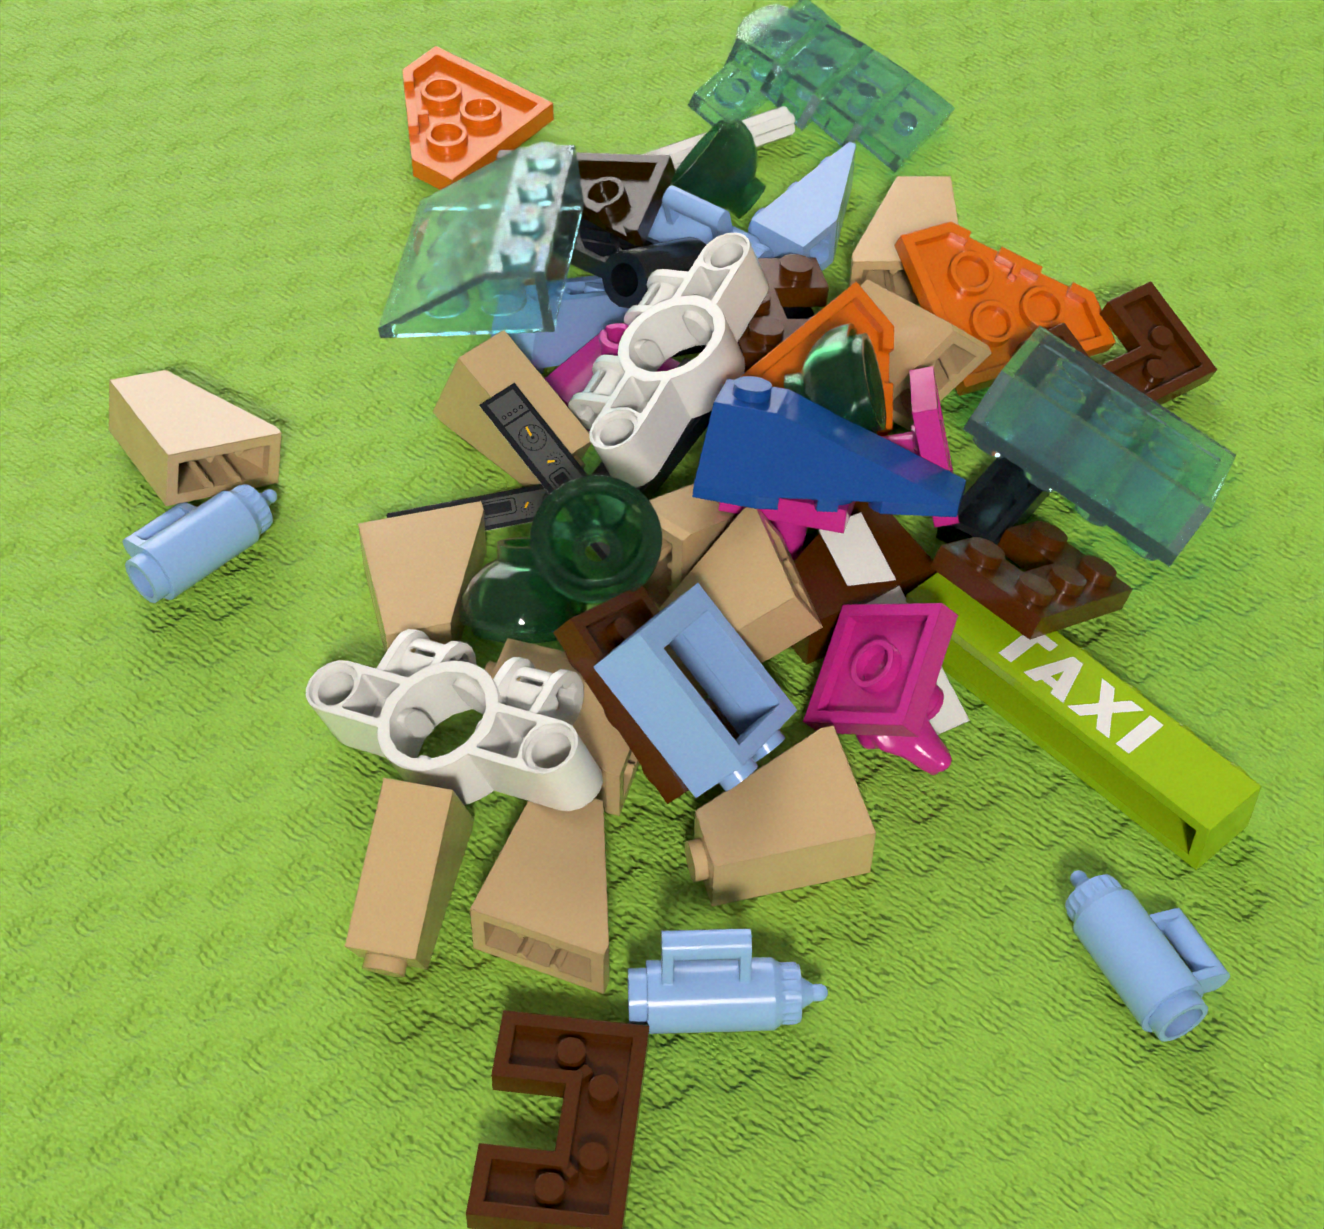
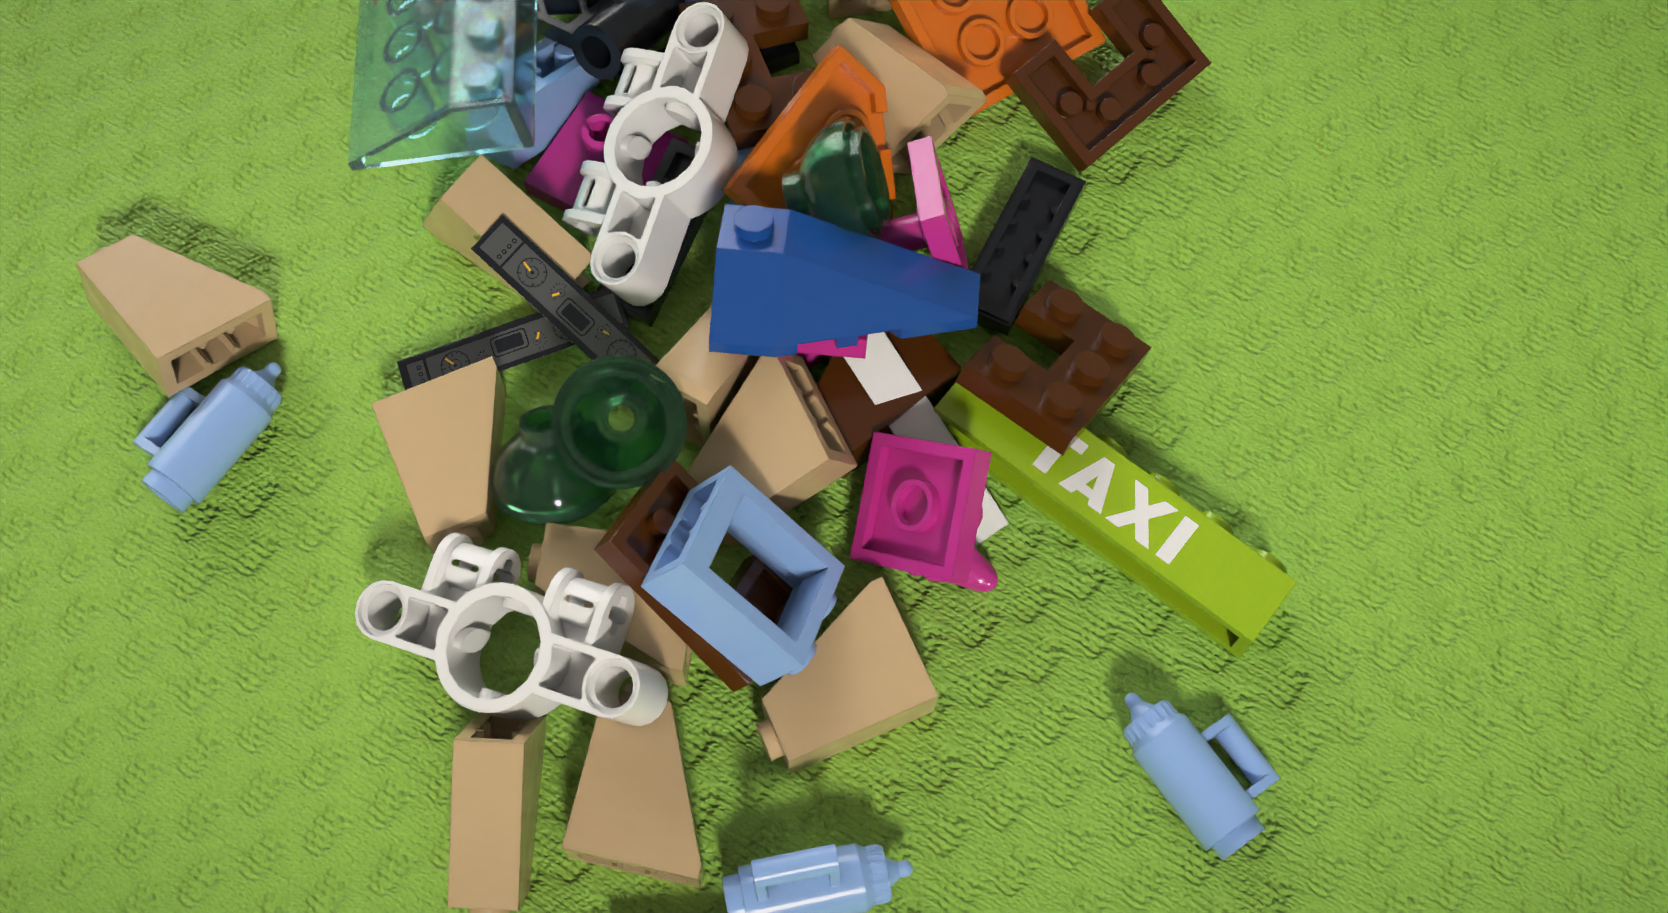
camera: 10 degrees left, 20 degrees up
(1101, 446) = (1108, 186): clear light blue slope -> none

